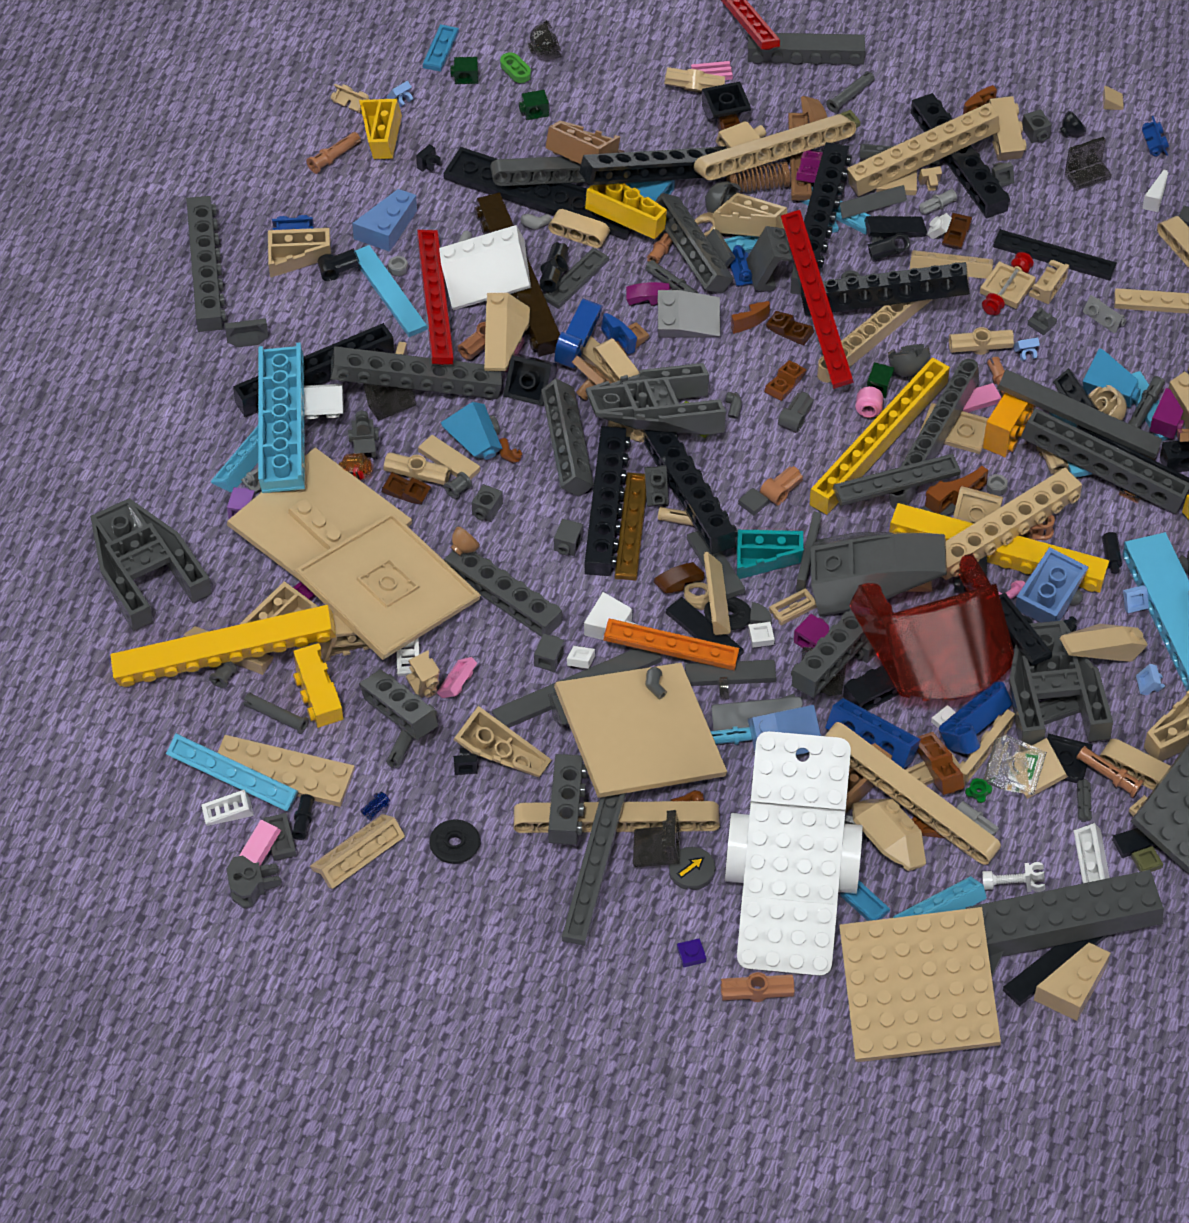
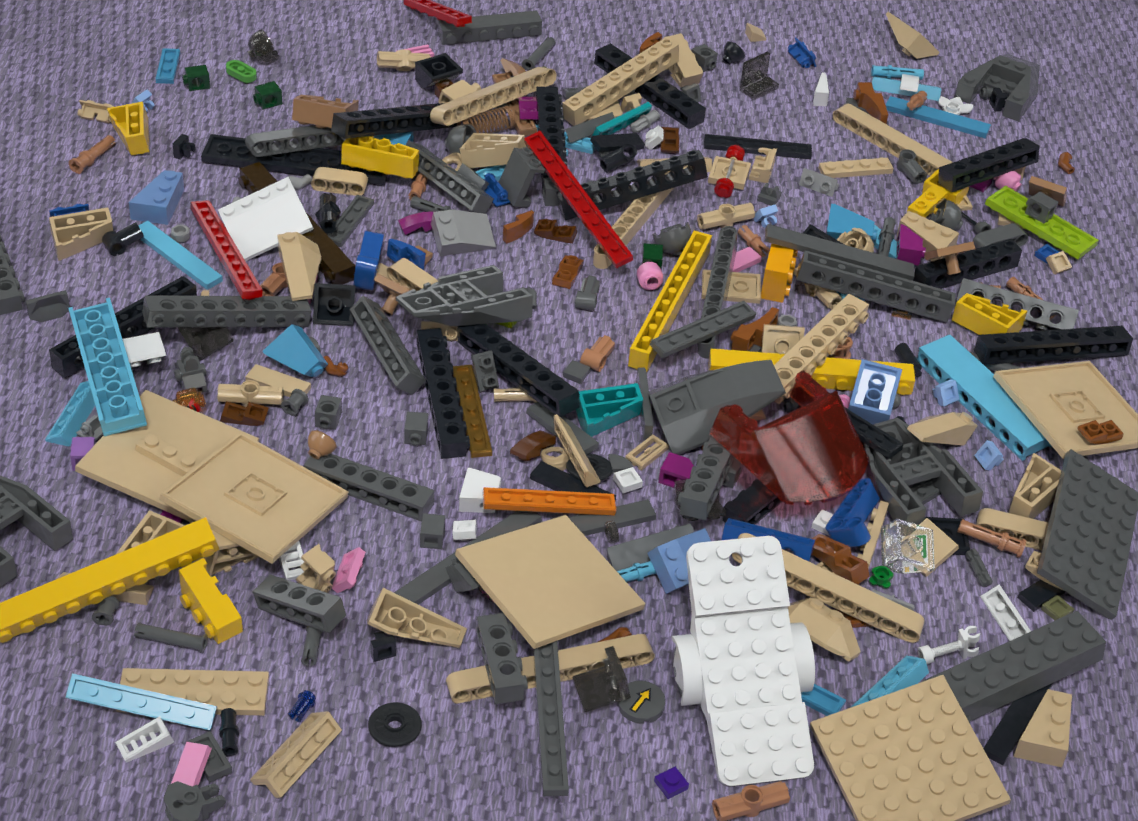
camera: 20 degrees left, 10 degrees down
(652, 682) = (548, 534): dark grey arm -> none
(910, 199) = (623, 120): none -> teal tile

